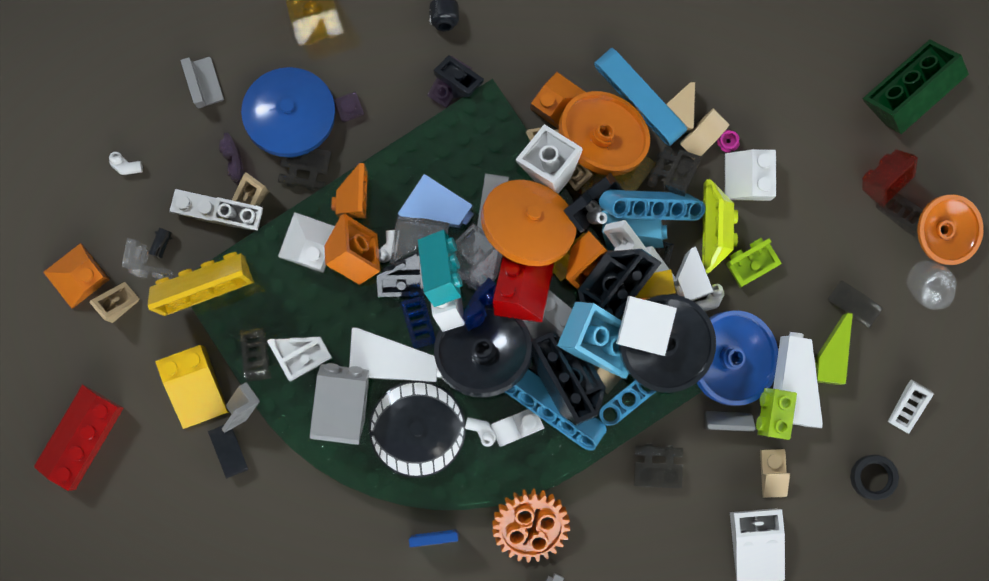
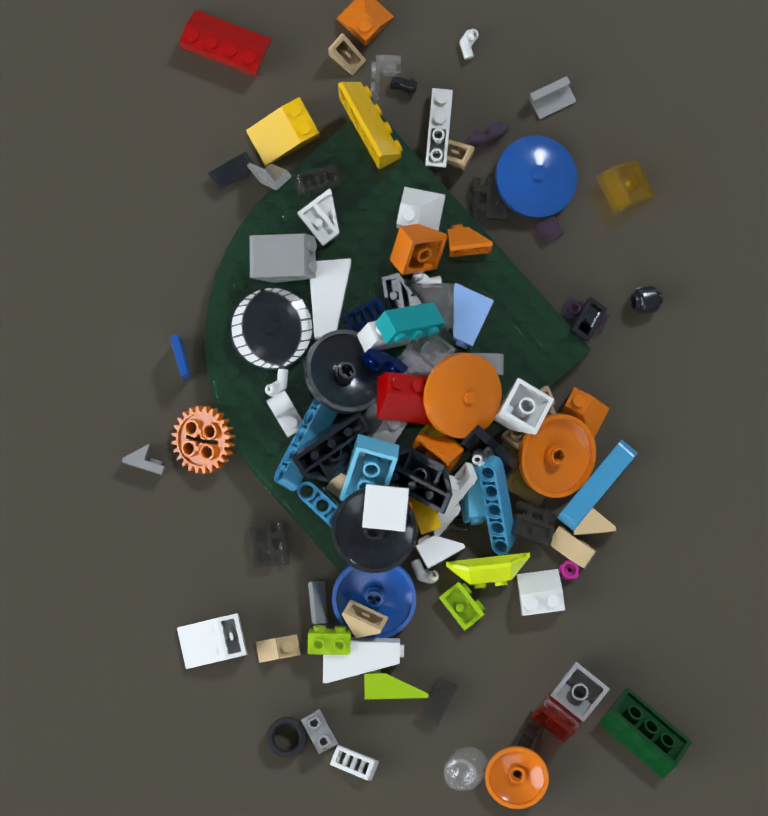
camera: 85 degrees right, 0 degrees up
(760, 371) = (363, 620): none -> tan slope
(864, 147) = (579, 691): none -> light grey slope
(873, 439) = (319, 731): none -> light grey hips

